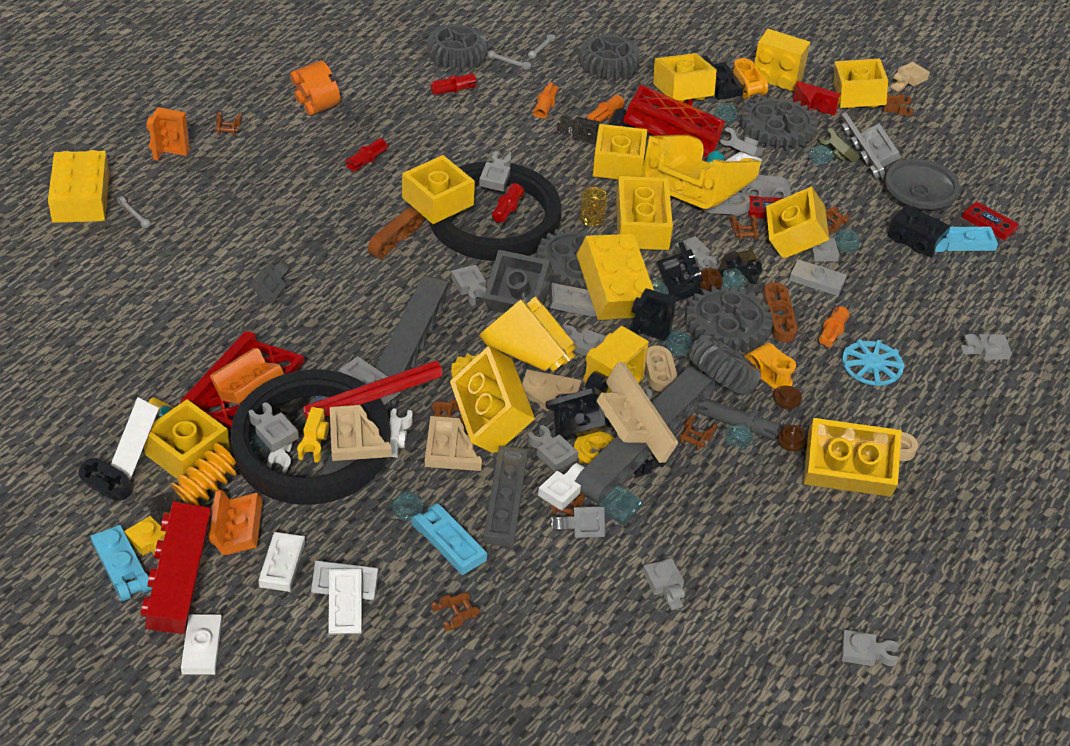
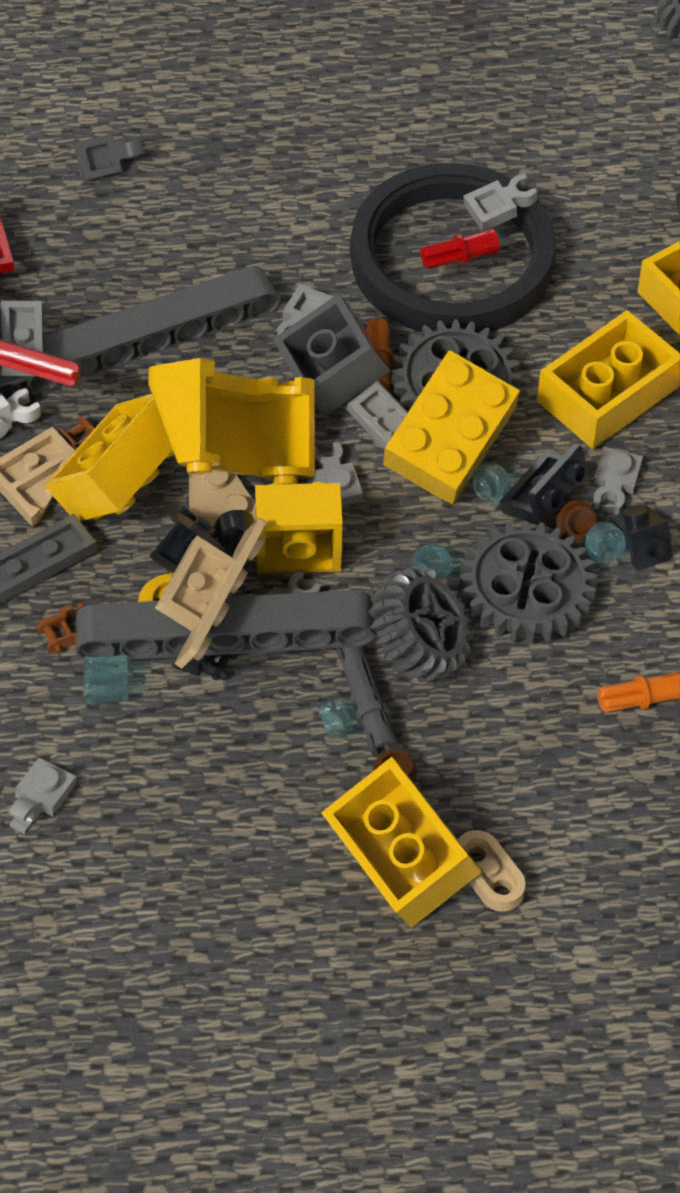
camera: 50 degrees right, 10 degrees up
(366, 154) = (411, 78): red axle -> none
(394, 232) = (294, 187): dark orange beam -> none
(438, 189) = (385, 173): yellow brick -> none
(453, 84) = (634, 56): red axle -> none
(552, 451) = (127, 566): light grey plate -> none
(561, 488) = (56, 606): white plate -> none
(585, 522) = (45, 661): plate -> none
(593, 206) = (572, 328): clear yellow plate -> none
(653, 314) = (424, 499): black bracket -> none
(661, 373) = (359, 568): tan plate -> none
(708, 434) = (304, 659): dark orange piece -> none
(772, 364) = (491, 675): light orange piece -> none
(782, 304) = (610, 608): dark orange beam -> none
(787, 397) = (461, 723): reddish brown plate -> none
(864, 650) = (130, 1039): light grey plate -> none
(873, 362) = (627, 770): medium azure wheel -> none

